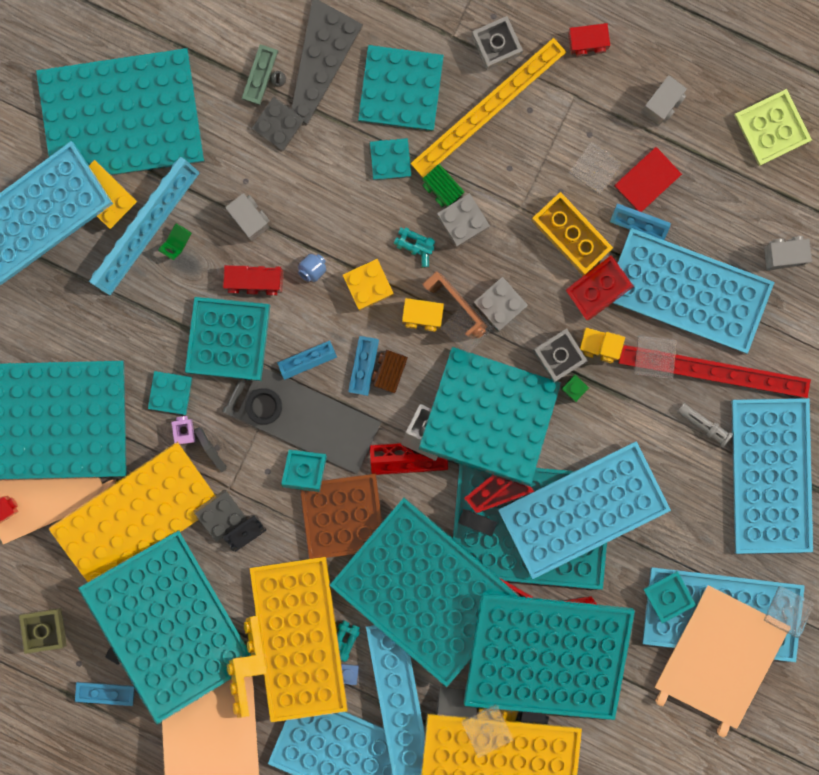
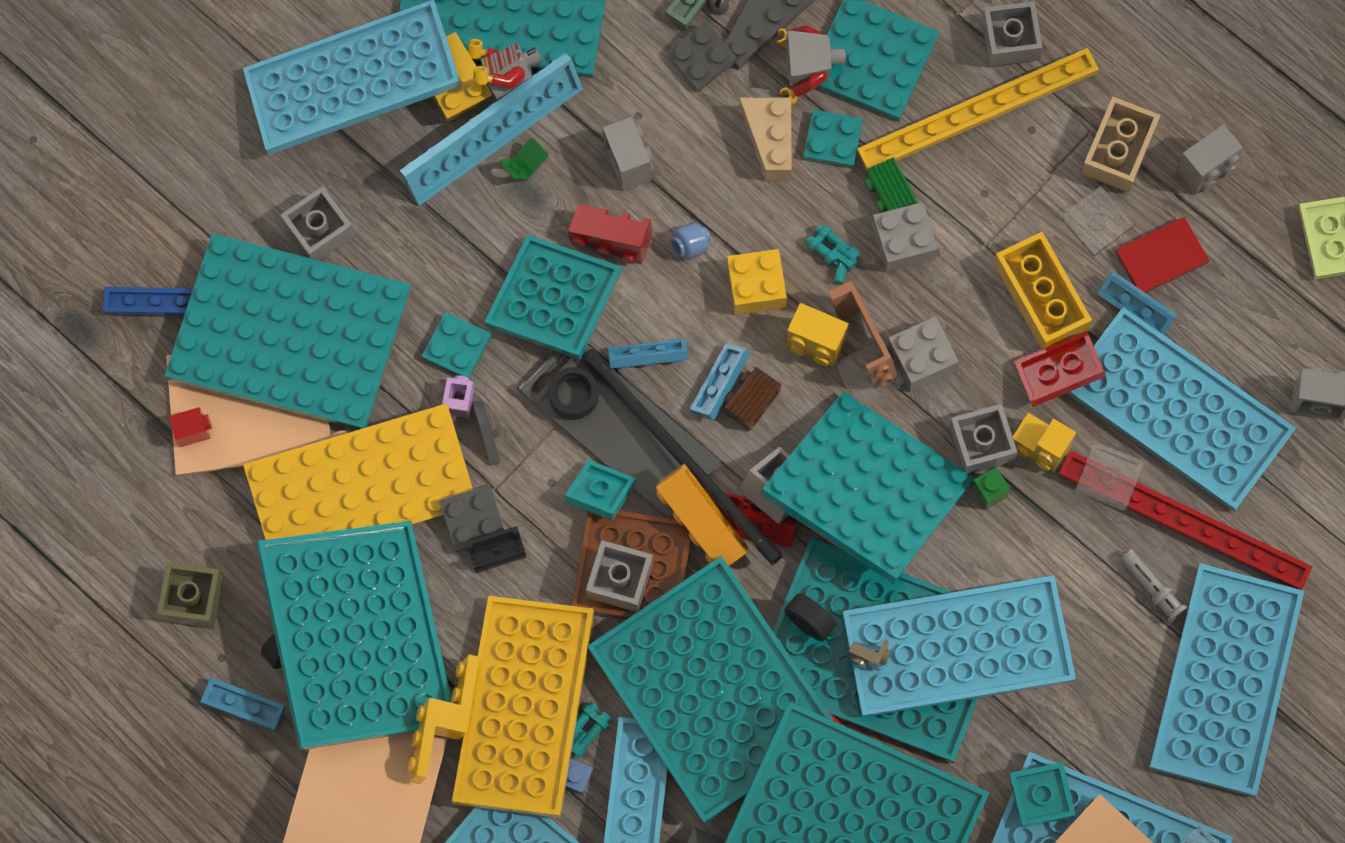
camera: 25 degrees right, 15 degrees down
(42, 335) = (317, 224): none -> light grey brick
(138, 178) = (504, 68): none -> torso
(279, 383) = (762, 543): none -> black piece
(337, 531) = (619, 576): none -> light grey brick
(345, 169) = (770, 131): none -> tan wedge
(356, 107) = (807, 59): none -> light grey torso
(381, 472) = (701, 516): none -> light orange brick
(496, 492) = (848, 585): red wedge -> none
(522, 541) = (865, 657): none -> dark tan bracket
(589, 39) = (1133, 62): red brick -> none
(597, 106) = (1120, 144): none -> tan brick

